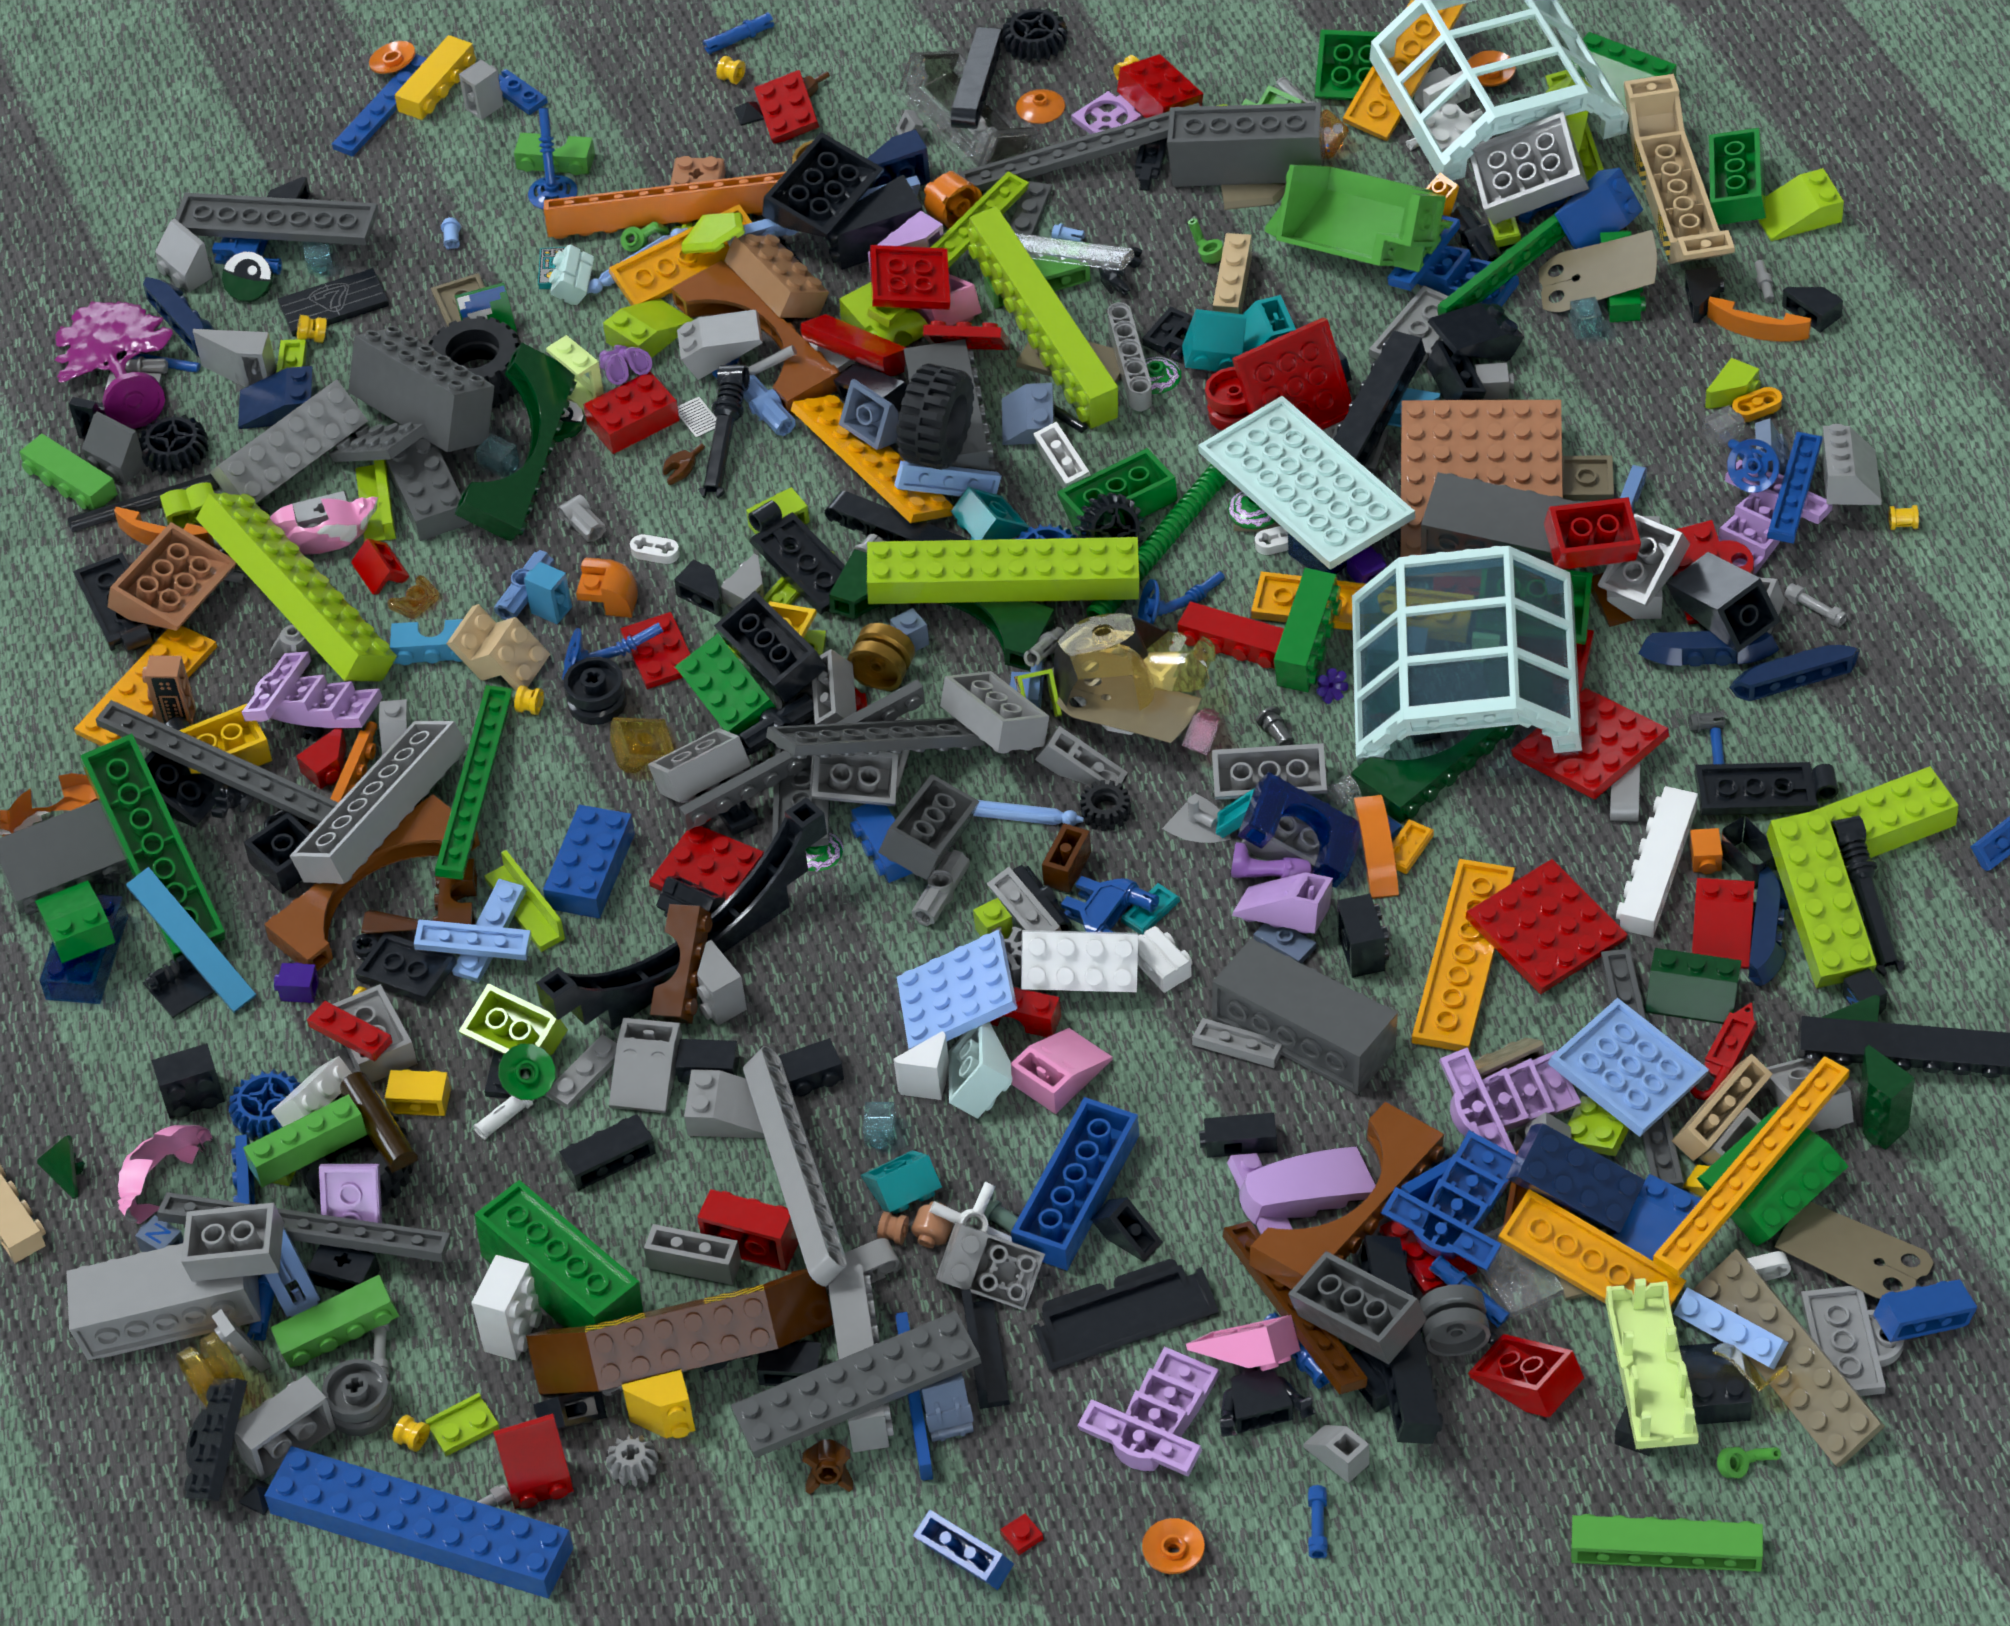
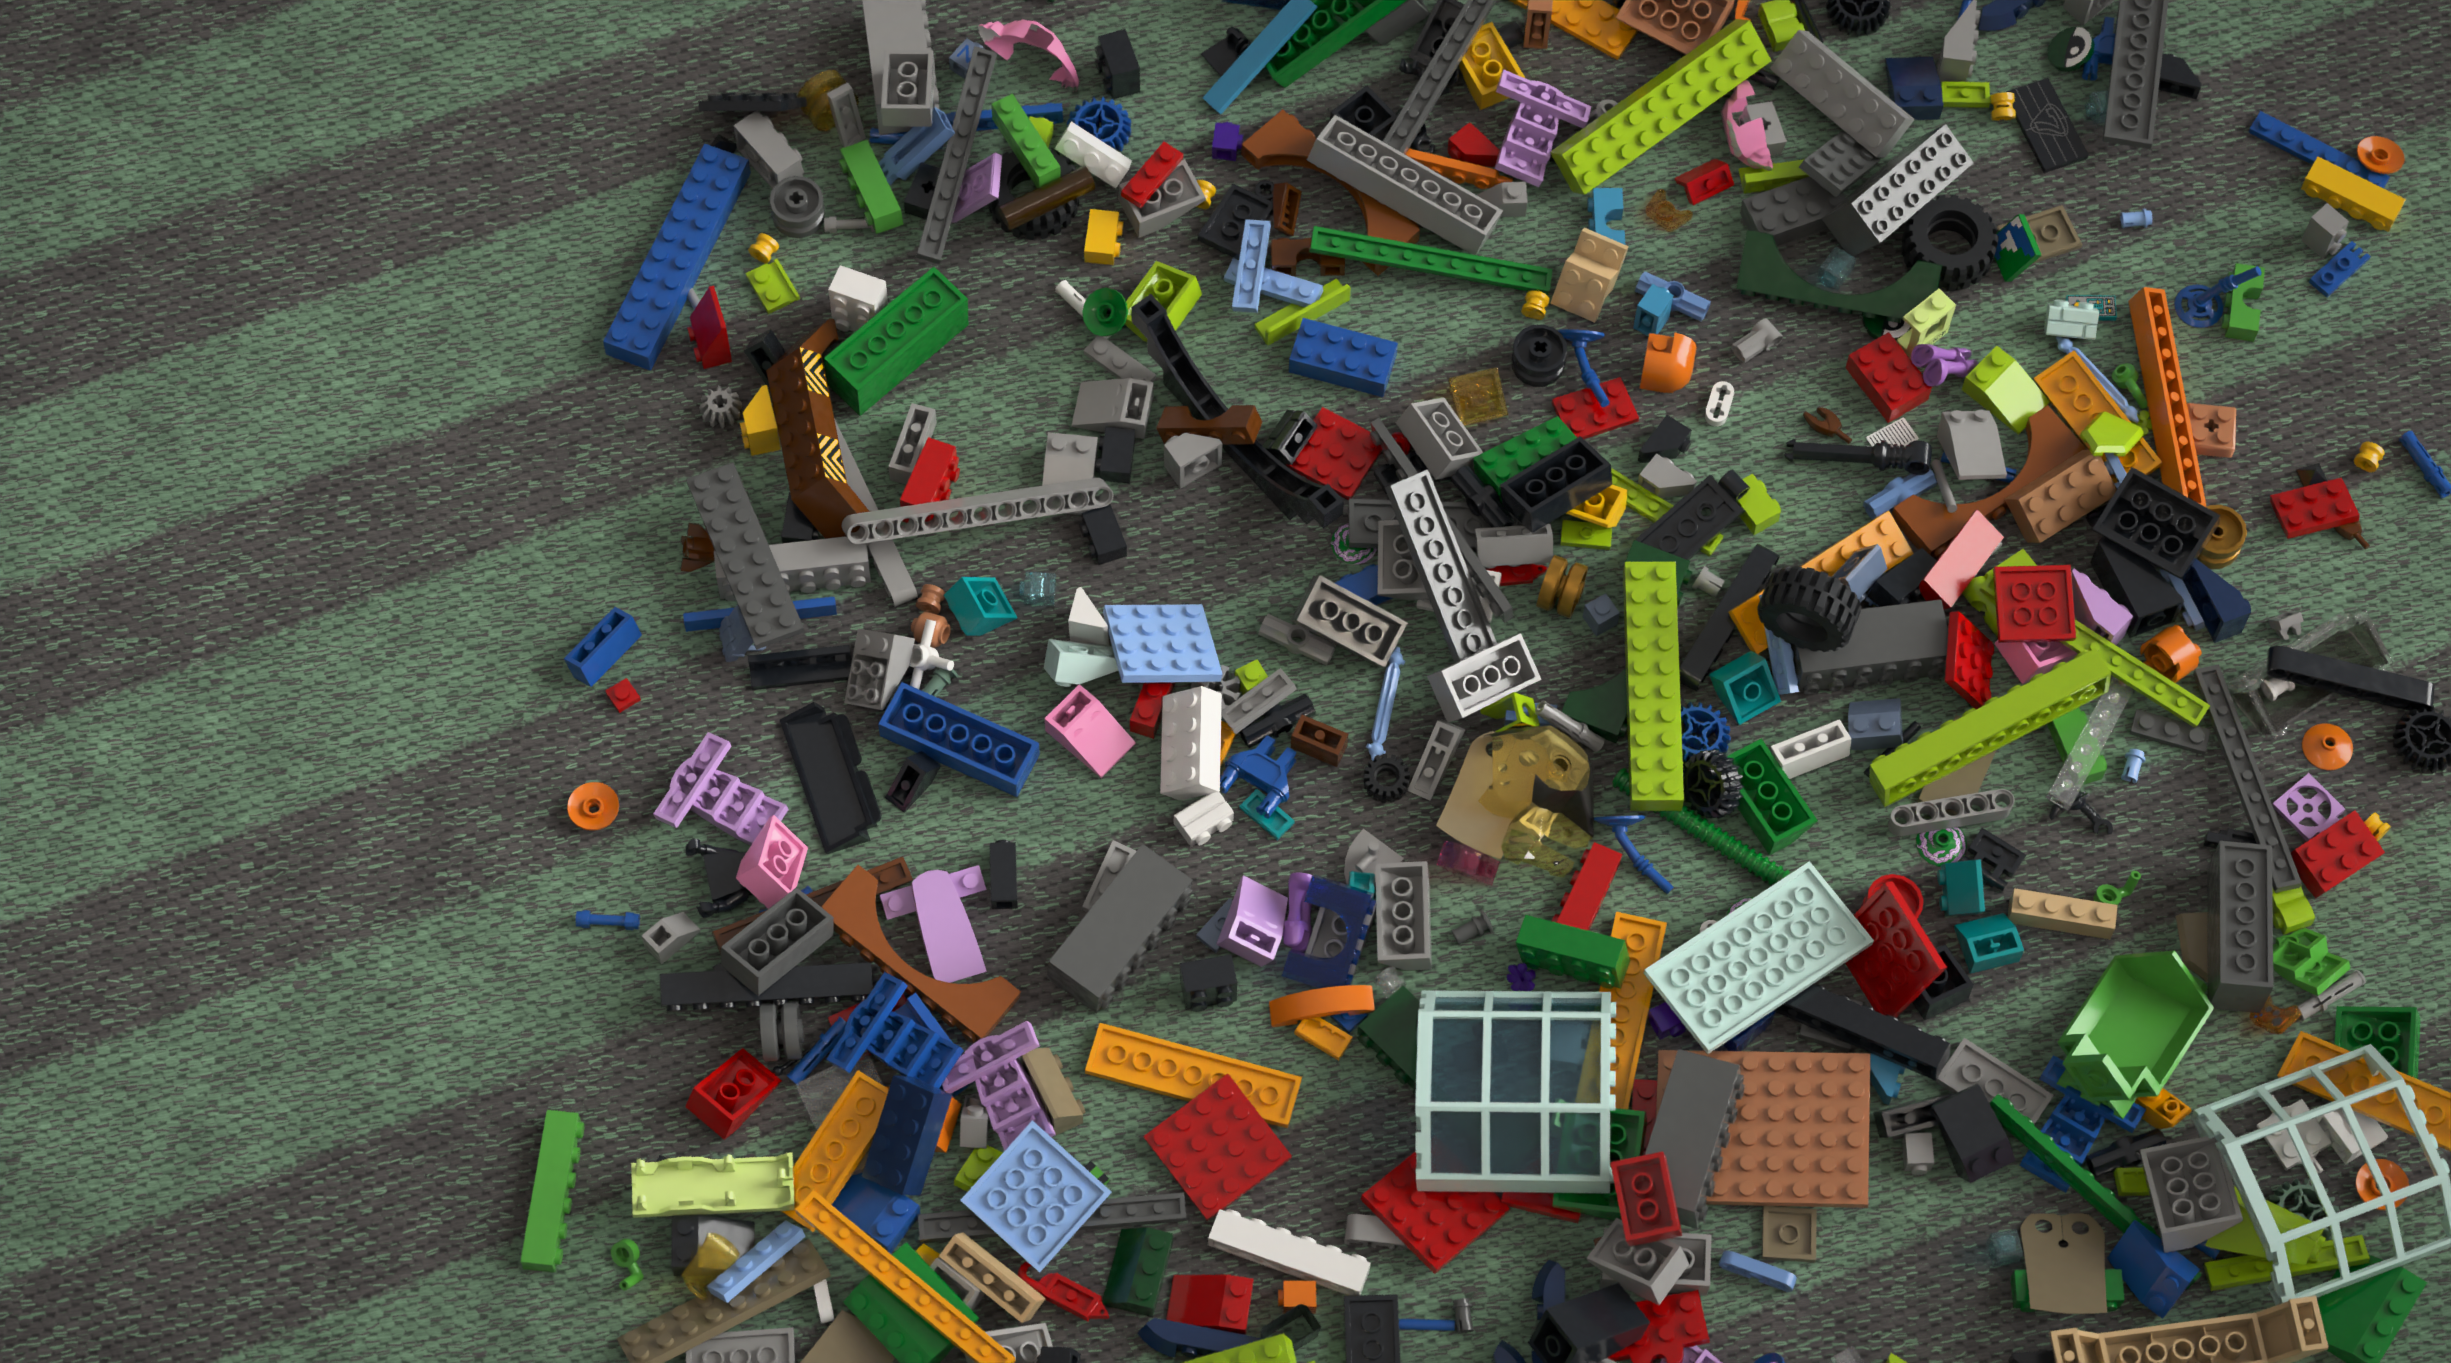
camera: 85 degrees right, 15 degrees up
(607, 1152) = (1028, 380): black brick -> none

